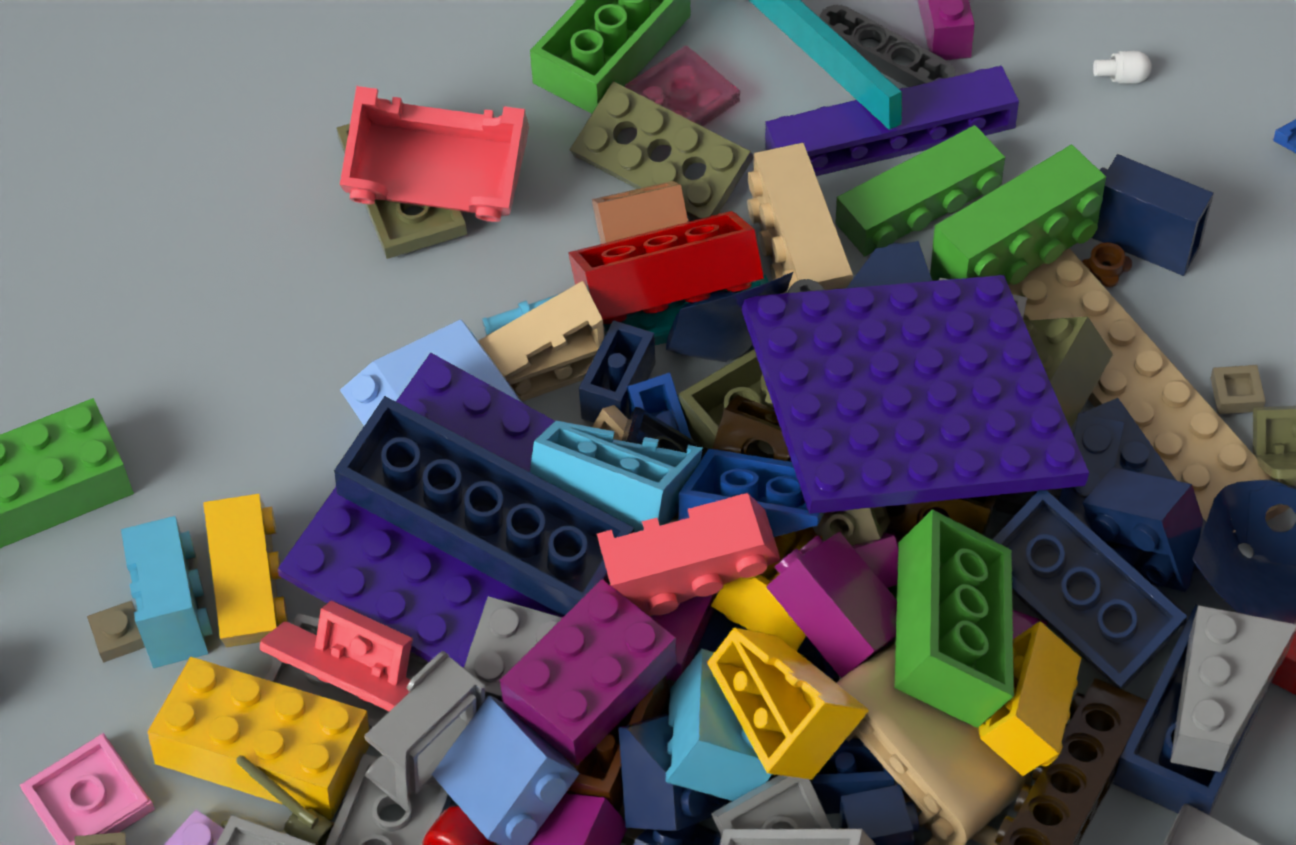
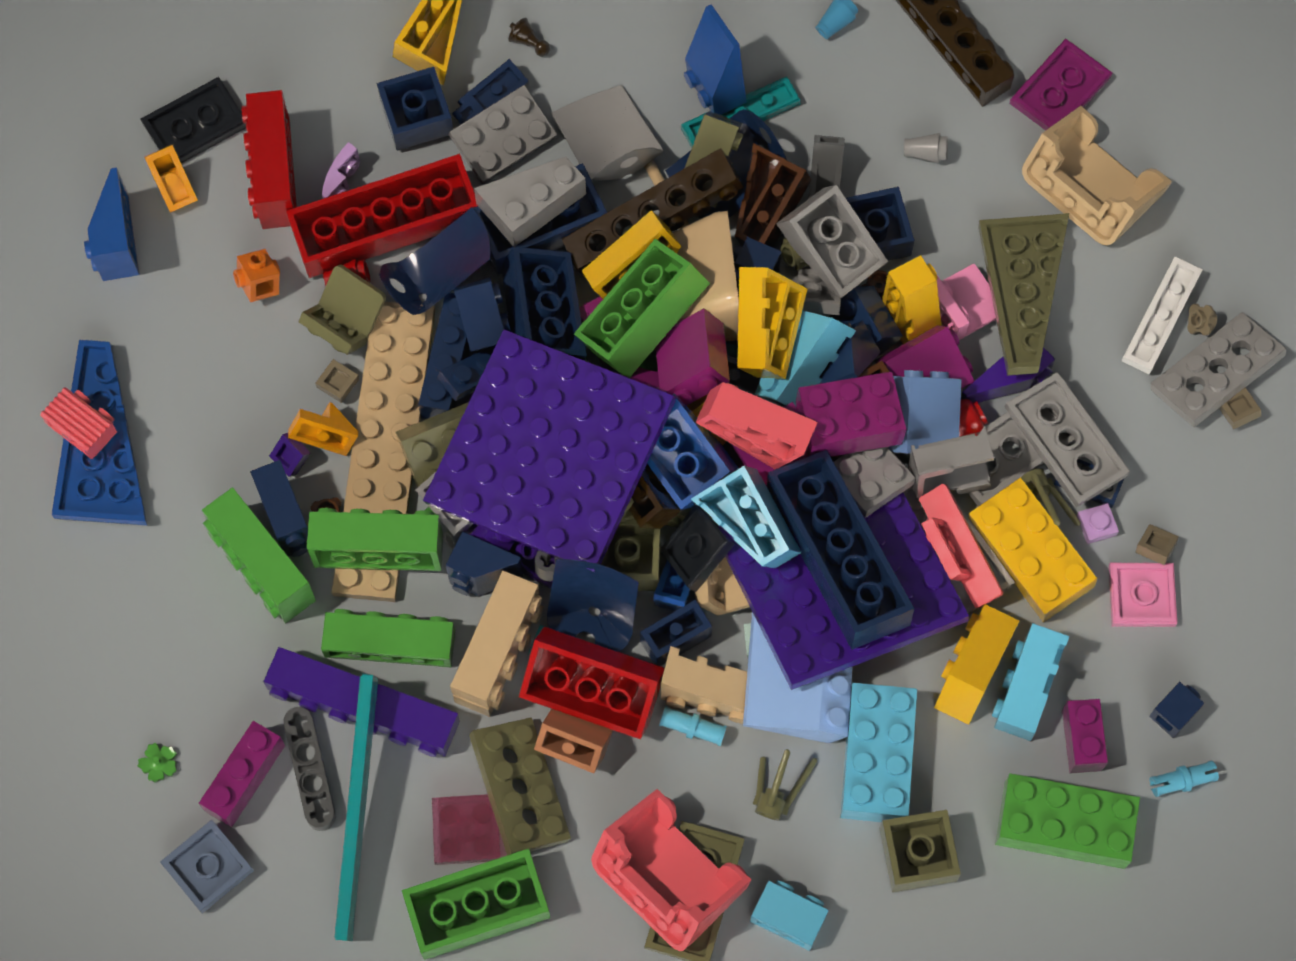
camera: 145 degrees left, 15 degrees up
(60, 576) = (1084, 736): none -> magenta brick
(116, 631) = (1068, 686): dark tan plate -> none
(180, 344) = (919, 851): none -> olive brick
(284, 217) = (789, 914): none -> medium azure brick
(290, 407) = (878, 753): none -> medium azure brick
(384, 305) = (771, 802): none -> olive plant
(1124, 67) = (180, 641): white cylinder -> none
(1162, 144) = (261, 558): none -> bright green brick
(1185, 329) = (325, 431): none -> light orange slope
(1204, 286) = (291, 454): none -> dark purple plate

